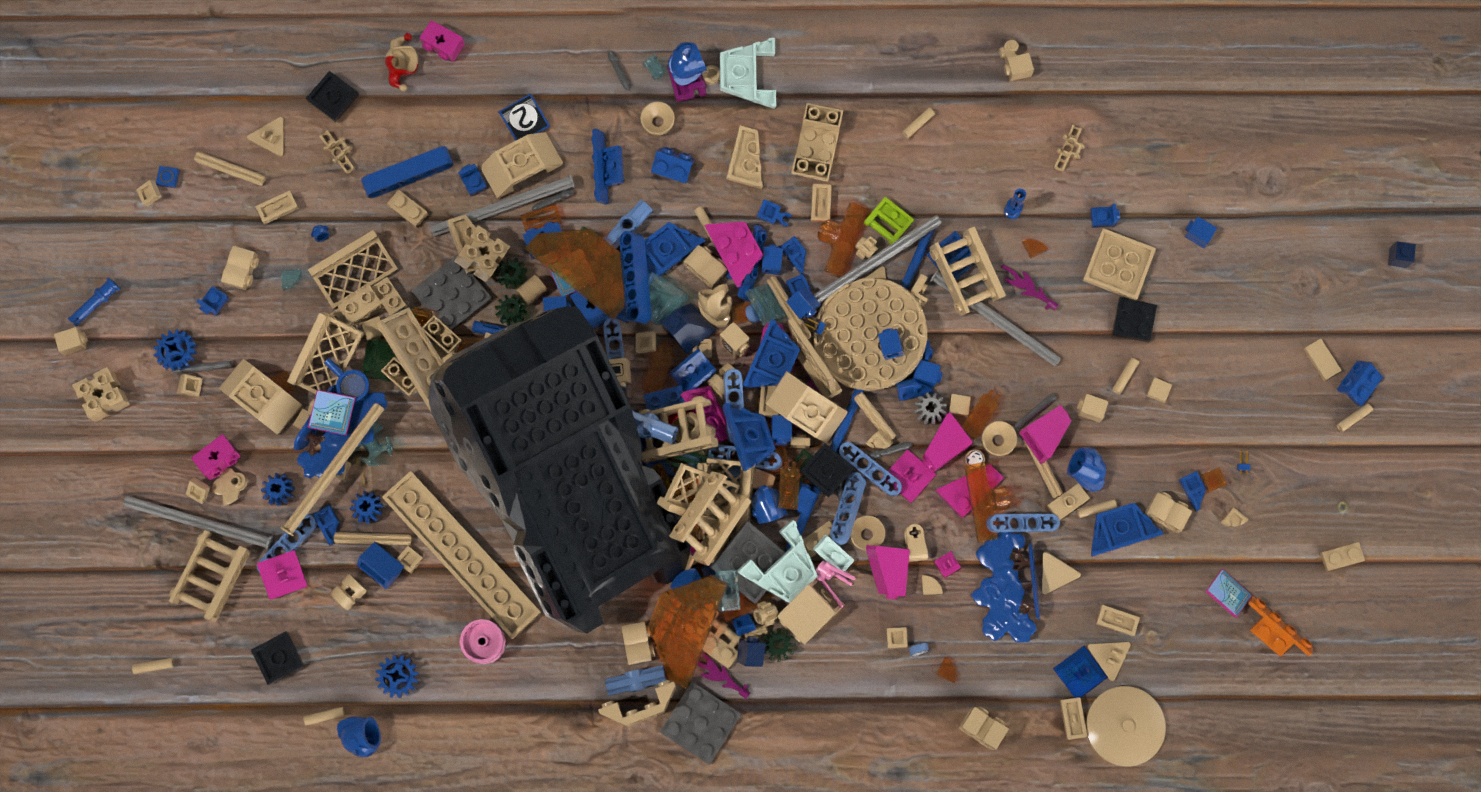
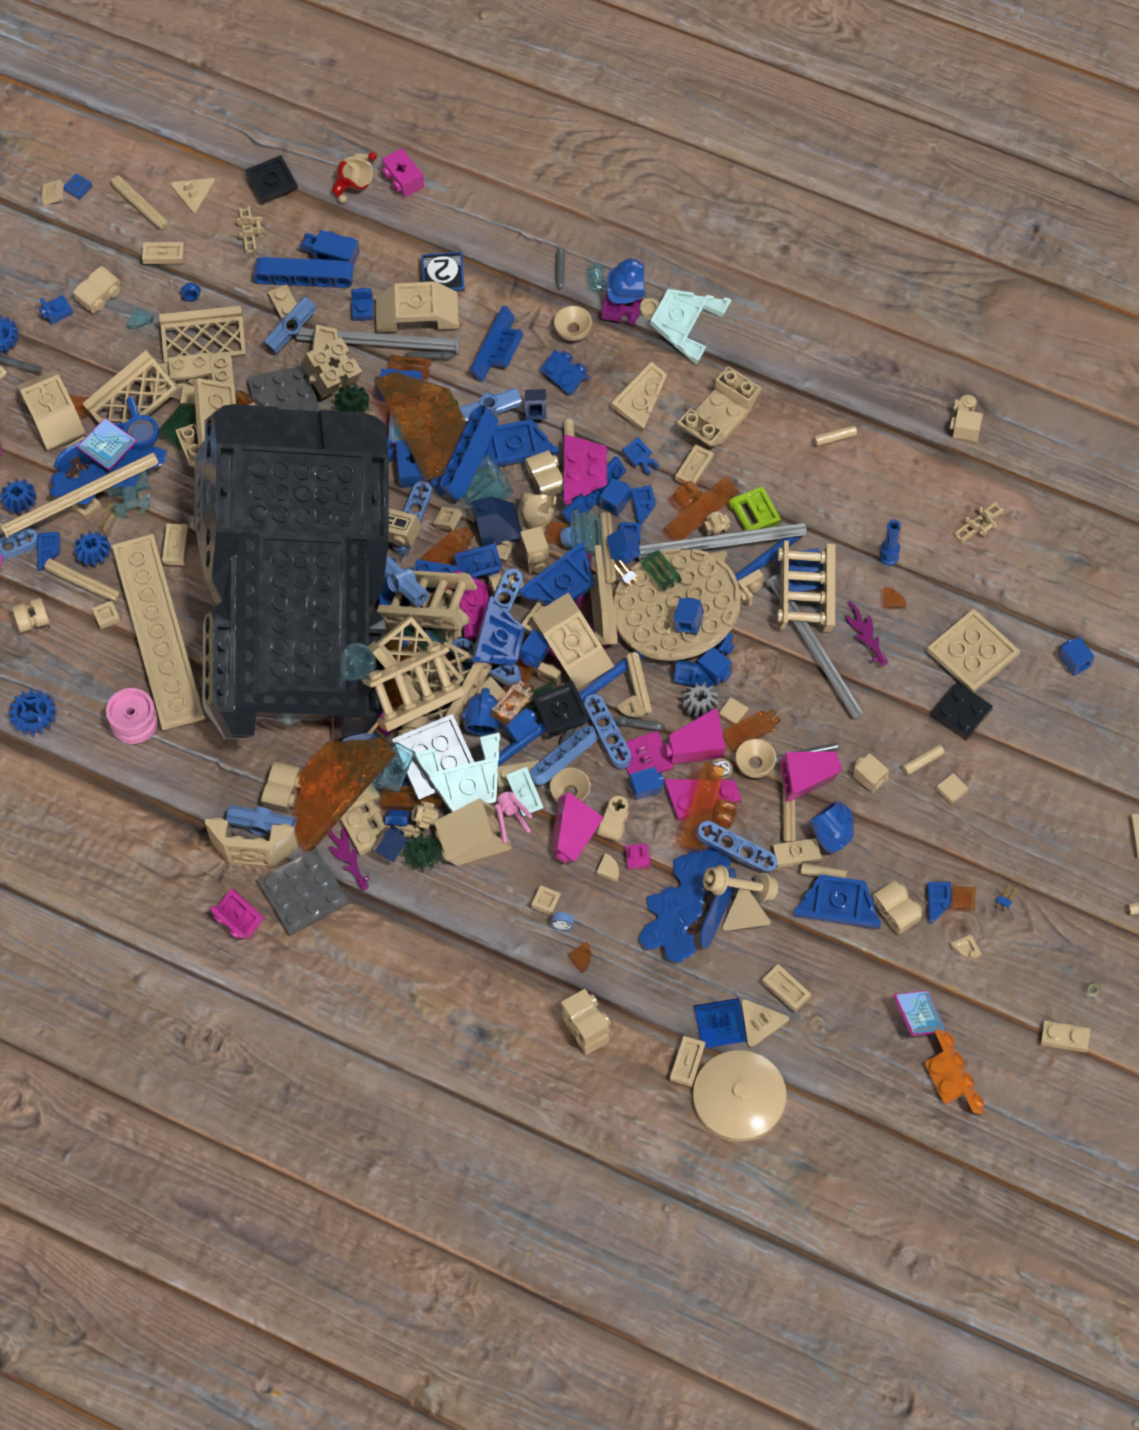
camera: 30 degrees right, 15 degrees down
(380, 565) = (74, 606): blue brick -> none
(418, 139) = (331, 246): none -> blue brick
(425, 216) = (299, 315): none -> medium blue piece
(433, 470) = (175, 544): none -> tan plate
(658, 524) = (357, 662): none -> clear light blue helmet
(660, 770) = (238, 915): none -> dark pink bracket
(665, 207) = (535, 404): none -> dark blue brick
(857, 318) = (668, 581): none -> clear green tile
(924, 500) = (646, 783): none -> blue brick
(1030, 563) = (717, 879): none -> tan piece
(1104, 216) = (982, 600): blue bracket -> none

